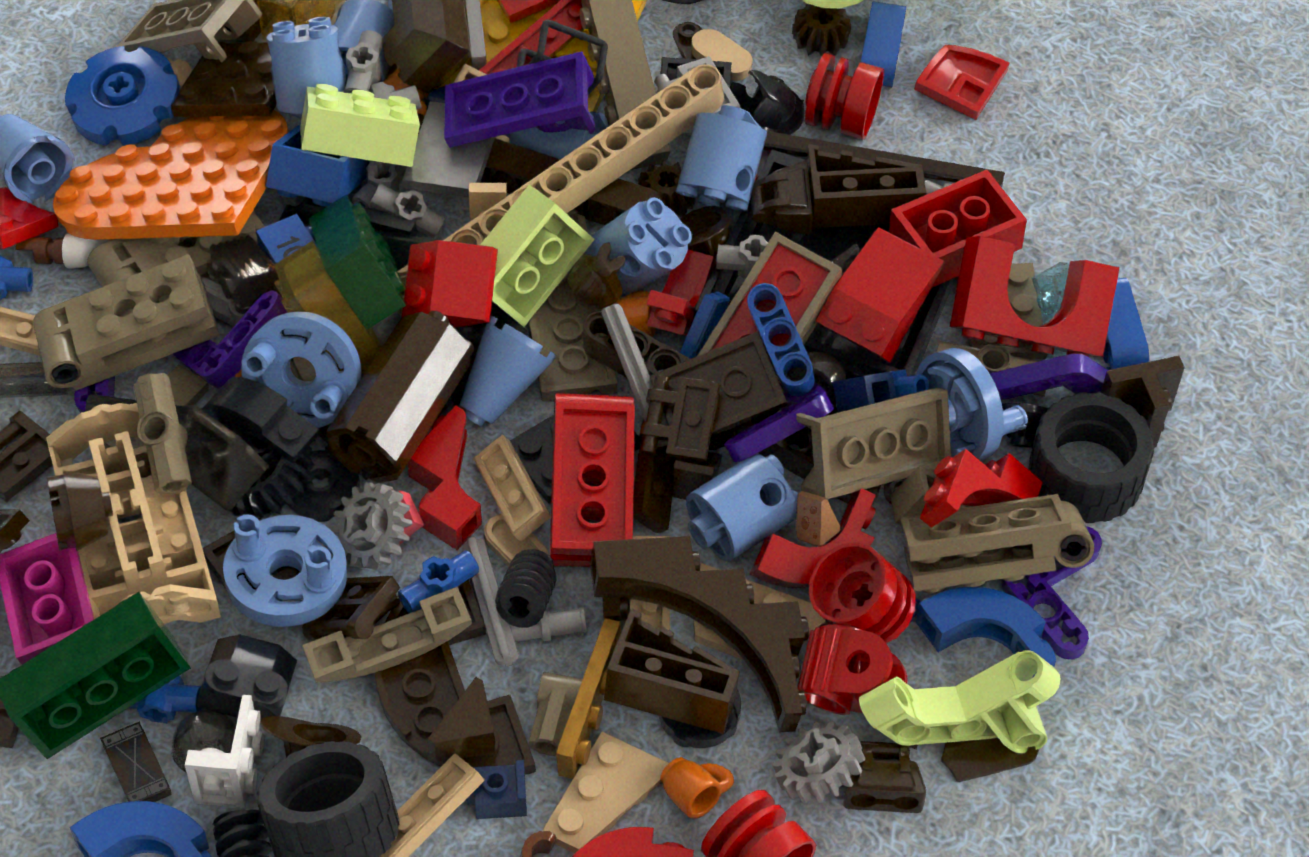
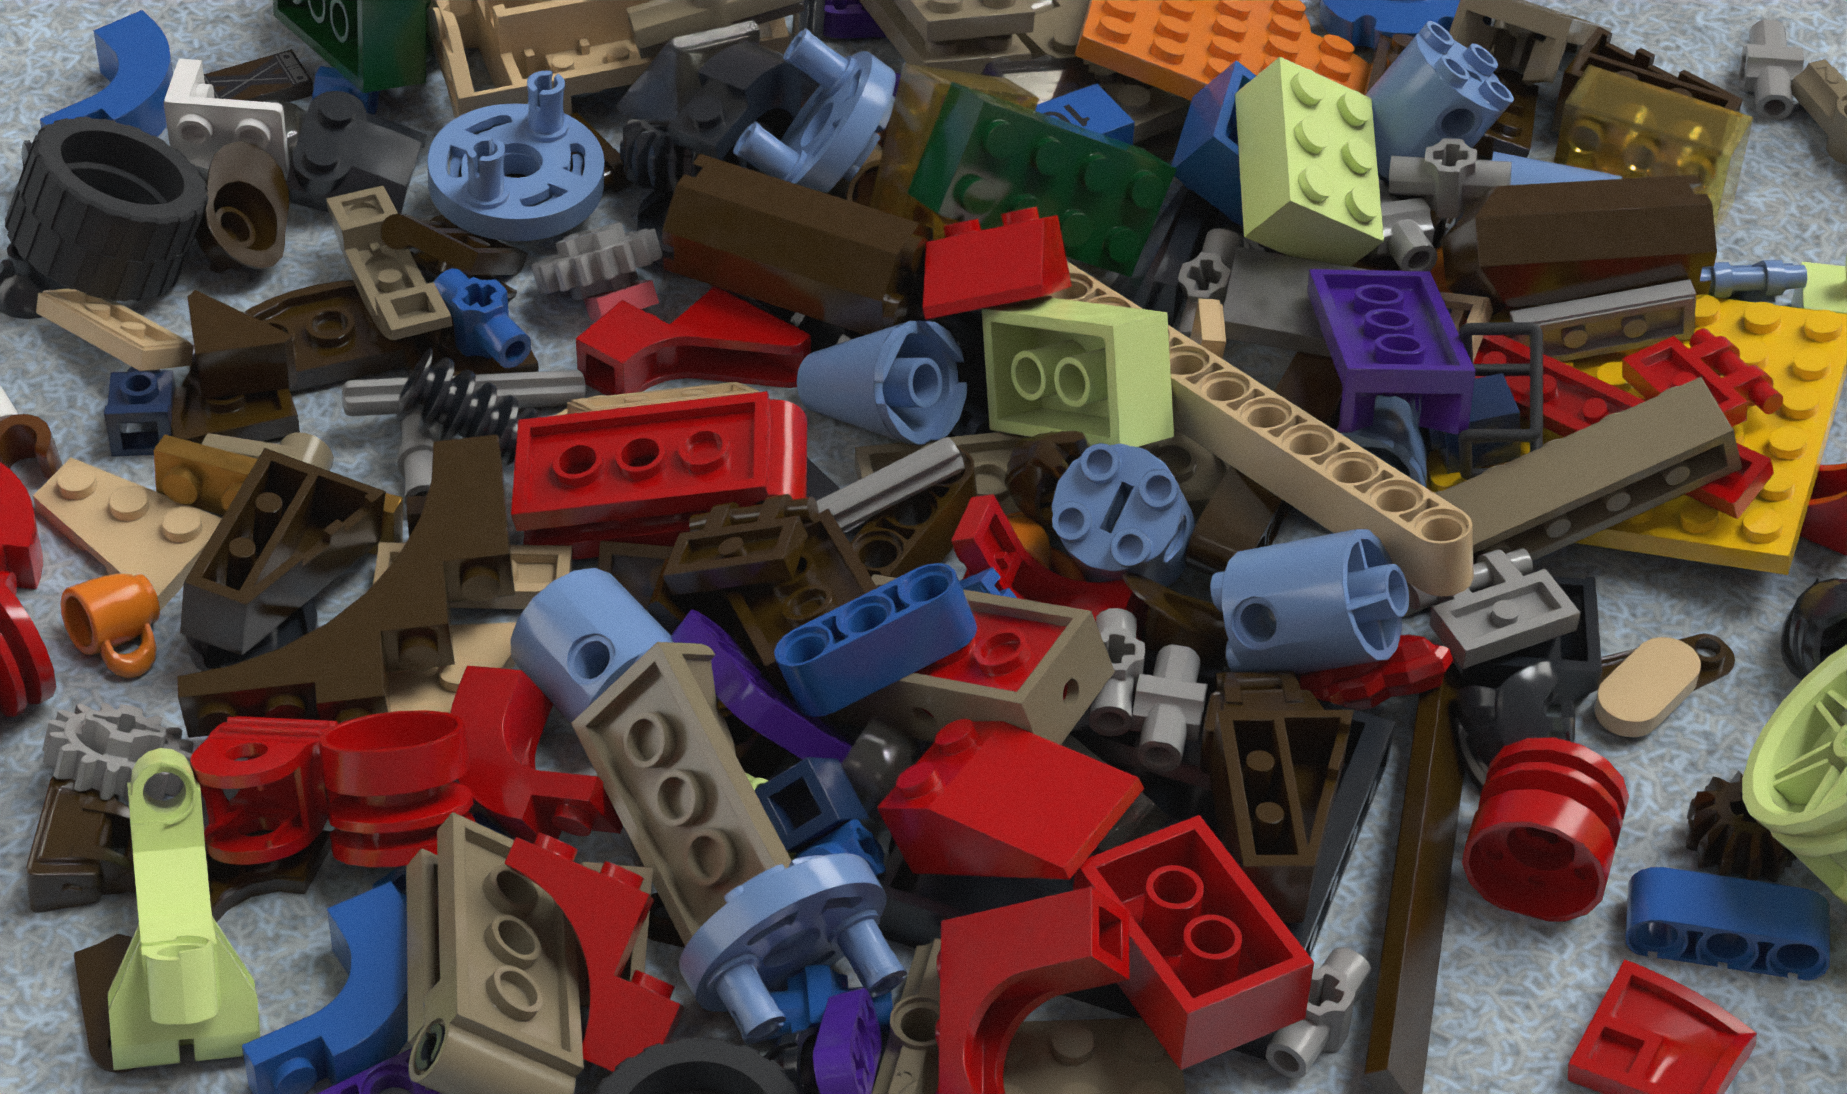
camera: 90 degrees right, 10 degrees down
(781, 224) = (1168, 708): none -> light grey axle
(815, 519) = (550, 738): medium nougat slope -> none

